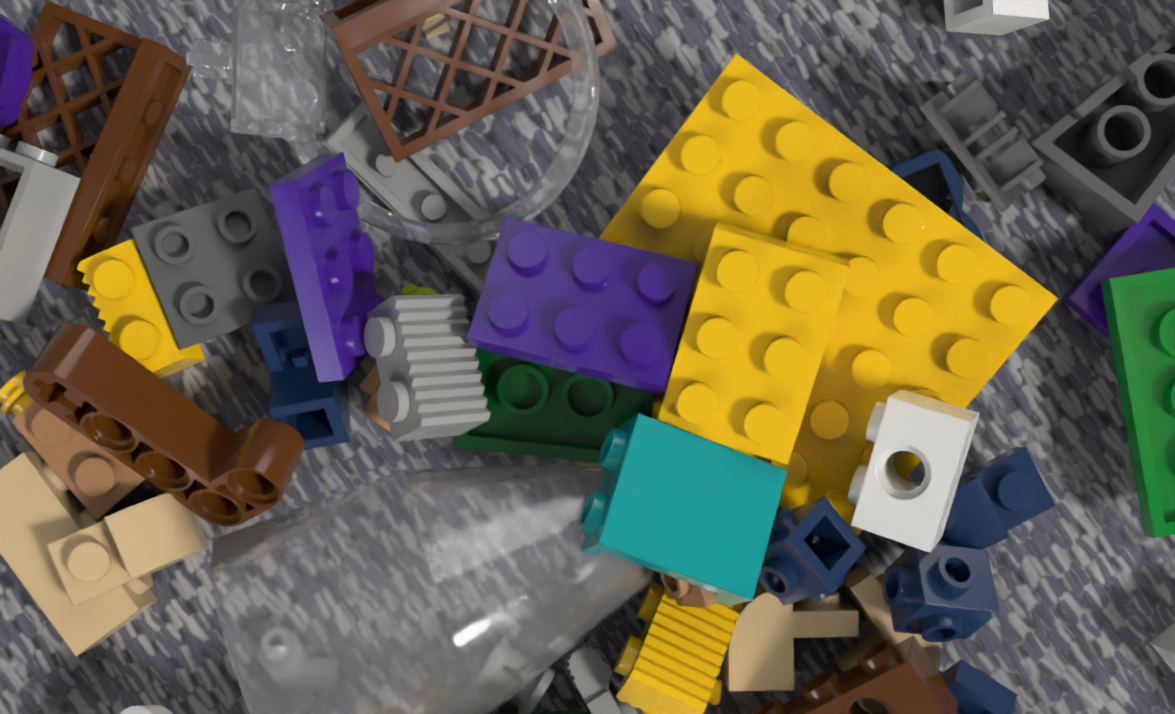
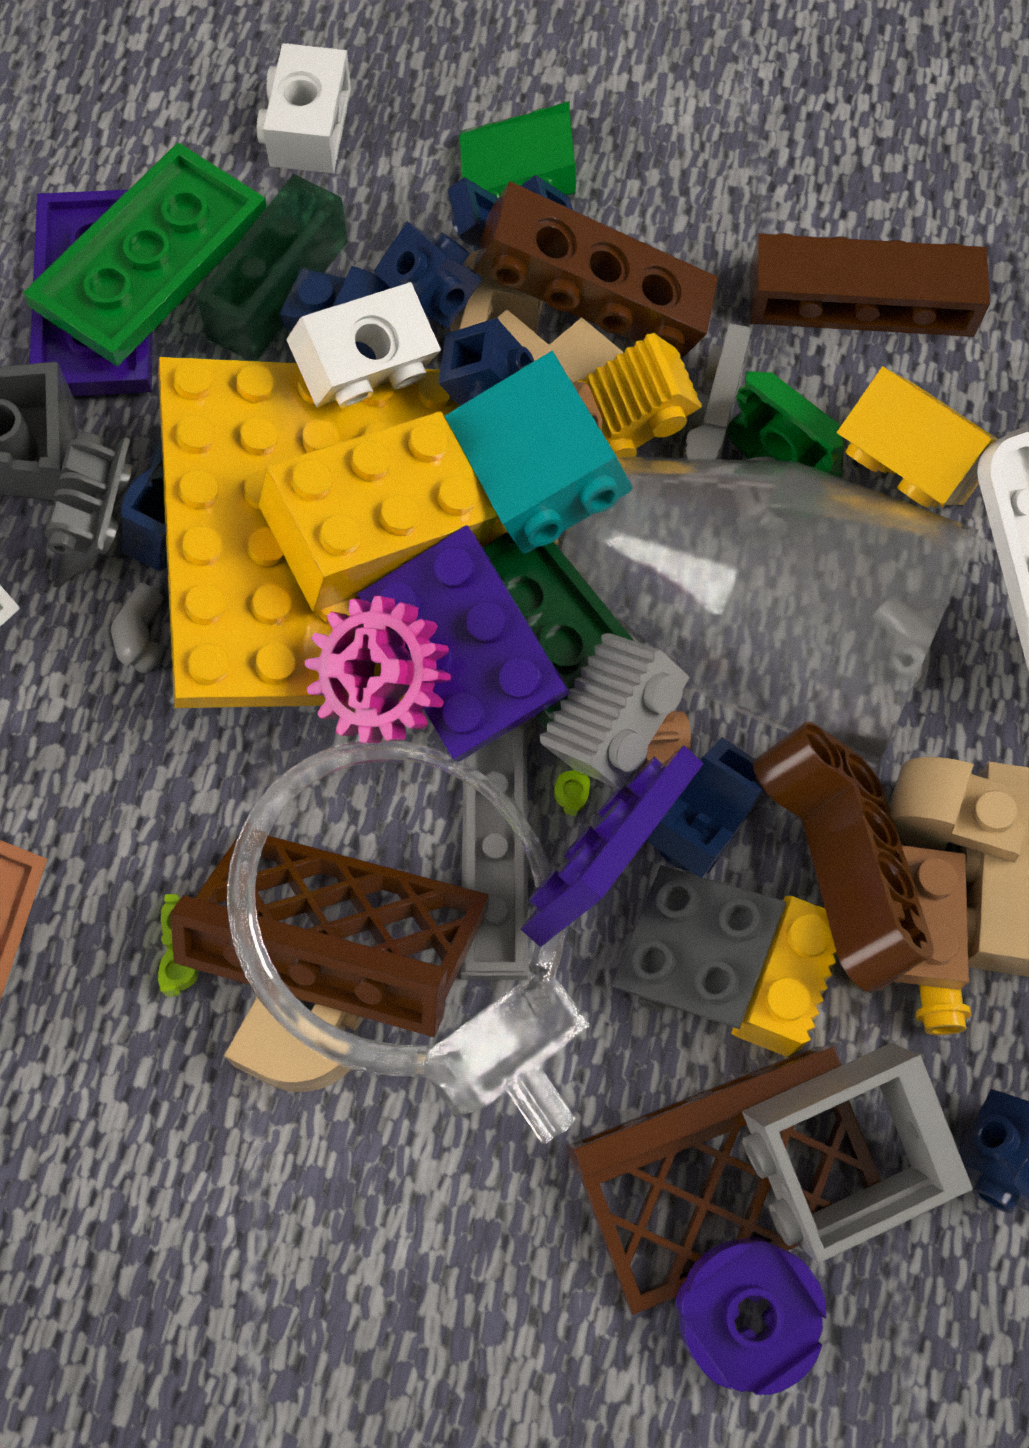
camera: 135 degrees left, 20 degrees down
(612, 211) = (347, 662): none -> dark pink gear
(855, 101) = (131, 631): none -> light grey arm
(1093, 512) = (249, 289): none -> clear green brick

